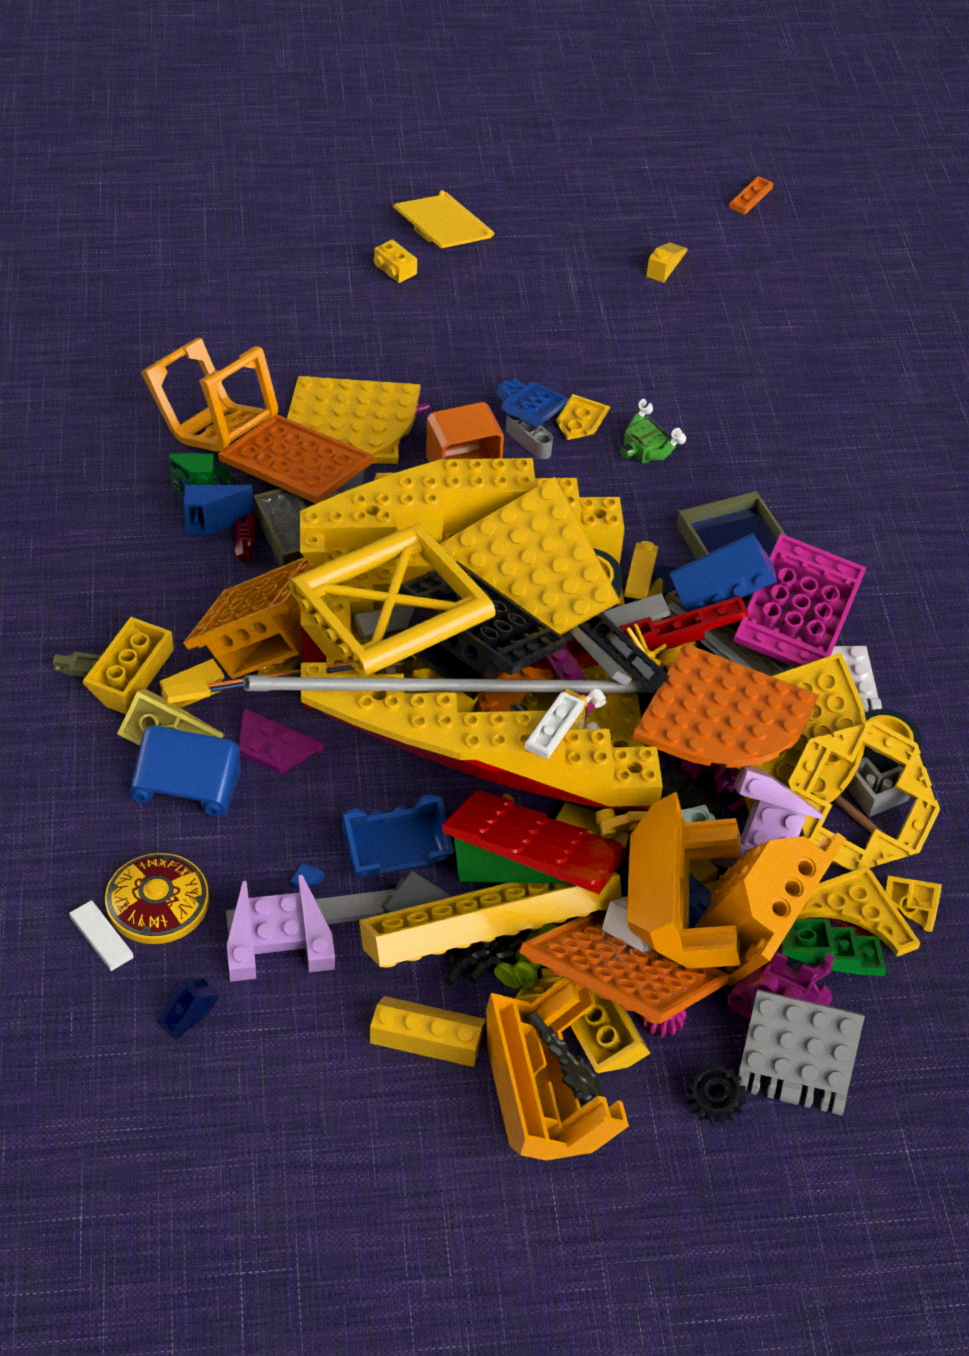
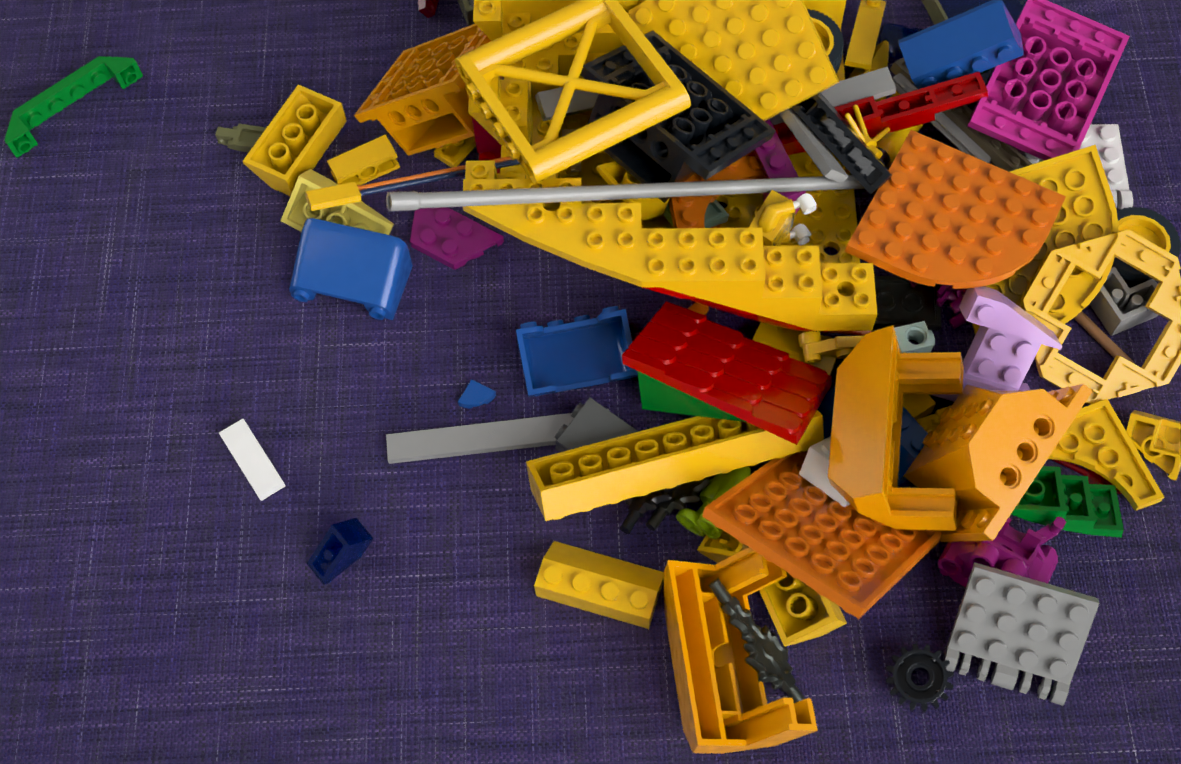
camera: 10 degrees right, 15 degrees up
(157, 898) = (313, 416): dish -> none
(275, 926) = (438, 456): lavender wedge -> none
(554, 725) = (753, 248): white tile -> none

